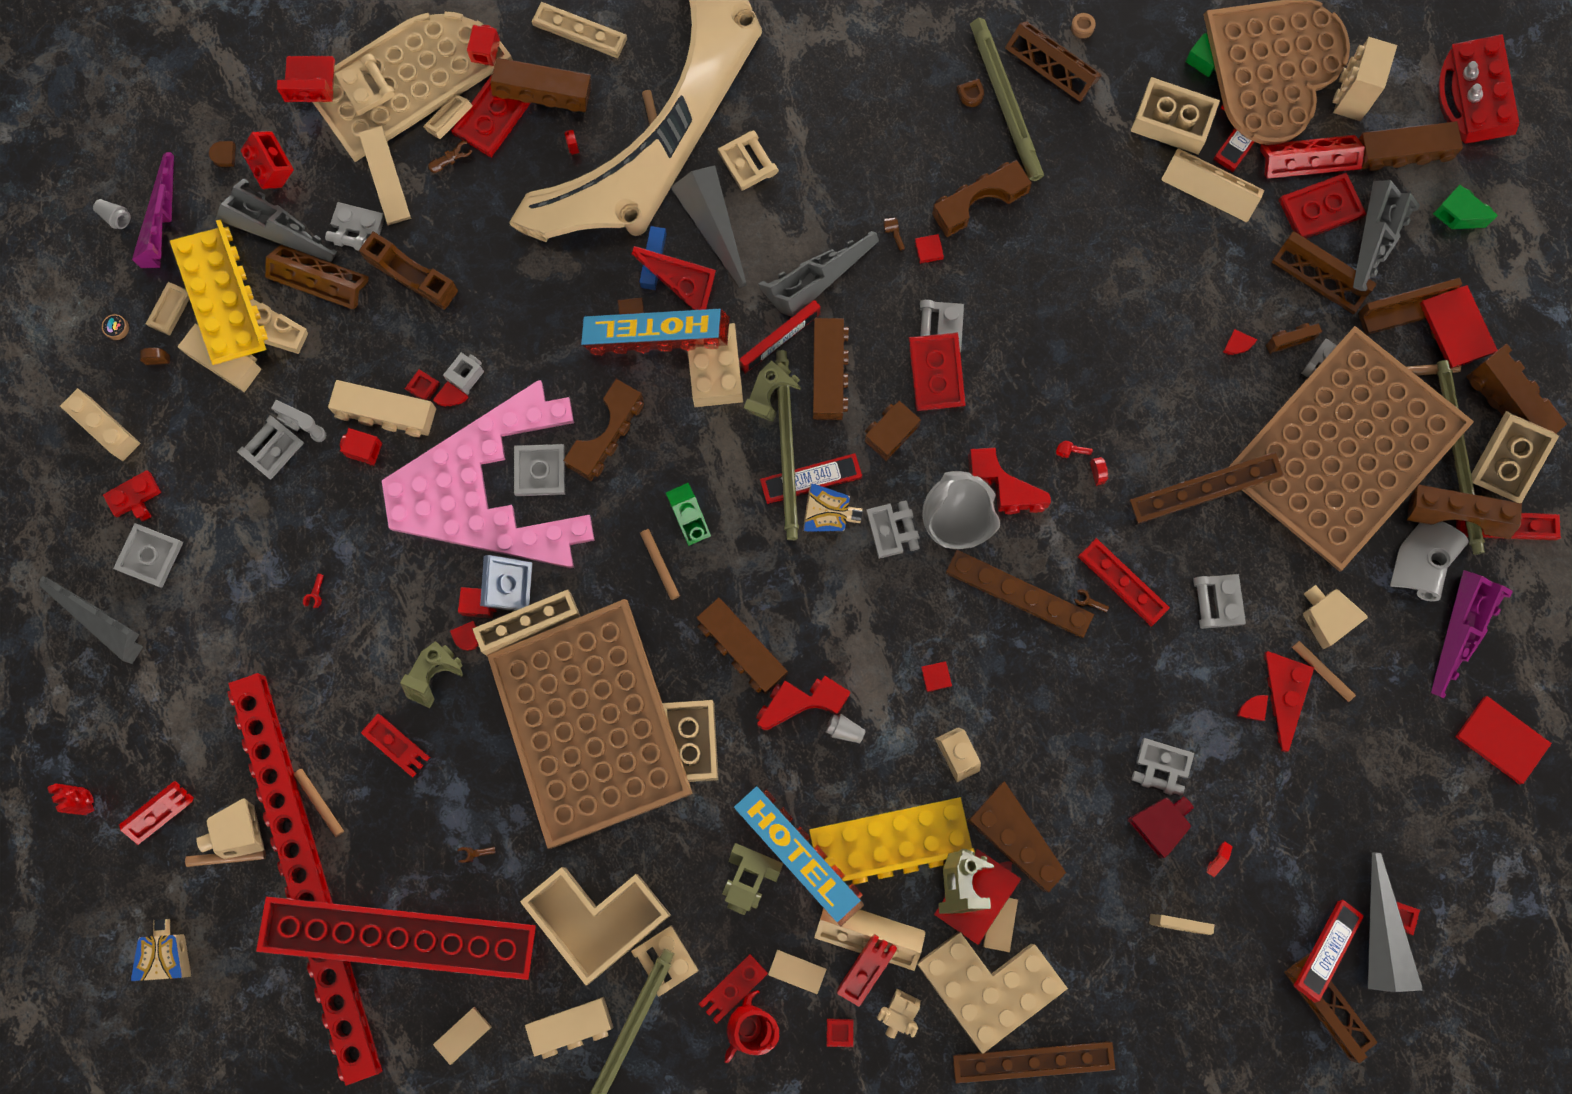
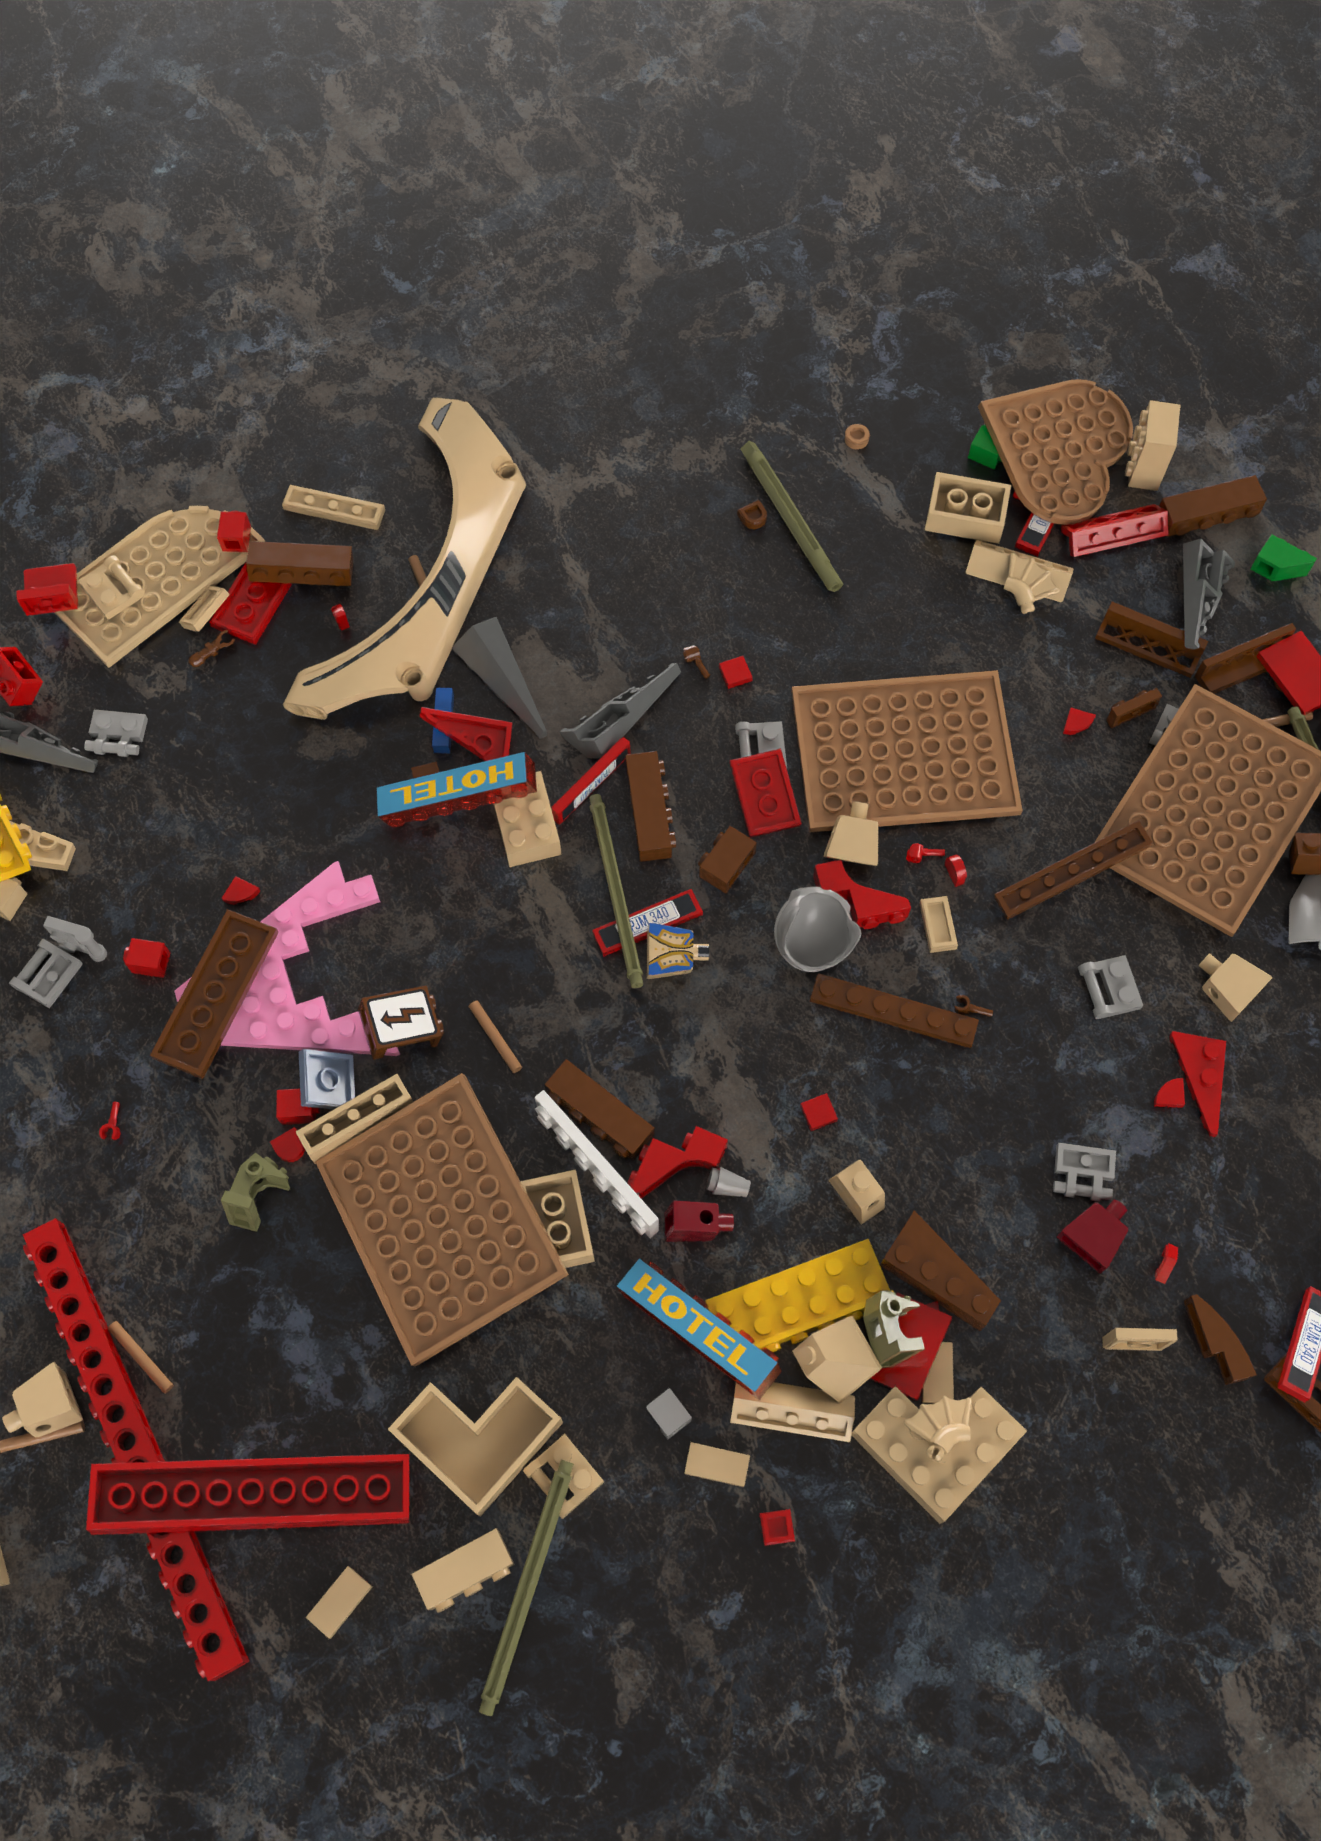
camera: 10 degrees left, 10 degrees down
(314, 278) = (77, 788): reddish brown fence -> none
(382, 408) = (165, 914): tan brick -> none
(384, 175) = (142, 675): tan tile -> none
(394, 744) = (221, 1276): red hinge -> none
(397, 265) = (200, 777): reddish brown arch -> none
(416, 490) = (214, 994): none -> reddish brown plate
(422, 385) = (208, 886): red tile -> none
(461, 365) = (247, 859): light grey brick -> none
(475, 853) = (326, 1387): reddish brown hand -> none
(539, 470) = (348, 955): light grey plate -> none
(577, 539) = (399, 1020): none -> panel
(588, 456) = (401, 932): reddish brown arch -> none
(688, 514) = (519, 977): green slope -> none
(725, 689) = (590, 1158): none -> white plate
(734, 987) = (647, 1494): red hinge -> none
(741, 164) = (524, 615): tan plate -> none
(743, 897) = (642, 1384): olive tile -> none
(751, 1029) = (674, 1537): red piece -> none
(759, 401) = (579, 847): olive tile -> none
(762, 923) = (669, 1413): none -> light grey panel
(800, 759) = (684, 1222): none -> dark red torso
(866, 971) = (795, 1449): red hinge -> none
(885, 531) = (737, 966): light grey plate -> none
(900, 1014) = (843, 1494): tan piece -> none
(915, 900) = (838, 1358): none -> tan slope
(995, 973) = (942, 1425): none -> tan arm
(1006, 183) = (805, 596): reddish brown arch -> none
(1011, 428) = (854, 837): none -> tan torso
(1033, 1062) = (1003, 1525): reddish brown plate -> none
(1056, 52) = (835, 464): reddish brown fence -> none
(1073, 349) = (906, 749): none -> medium nougat plate
(1074, 519) = (938, 924): none -> tan tile
(1124, 582) = (1004, 982): red tile -> none
(1218, 200) = (1028, 582): none -> tan arm
(1252, 935) = (1219, 1340): none -> reddish brown slope
(1322, 206) = (1136, 576): red tile -> none
(1331, 678) = (1237, 1044): medium nougat bar -> none
(1480, 90) = (1272, 443): red piece -> none

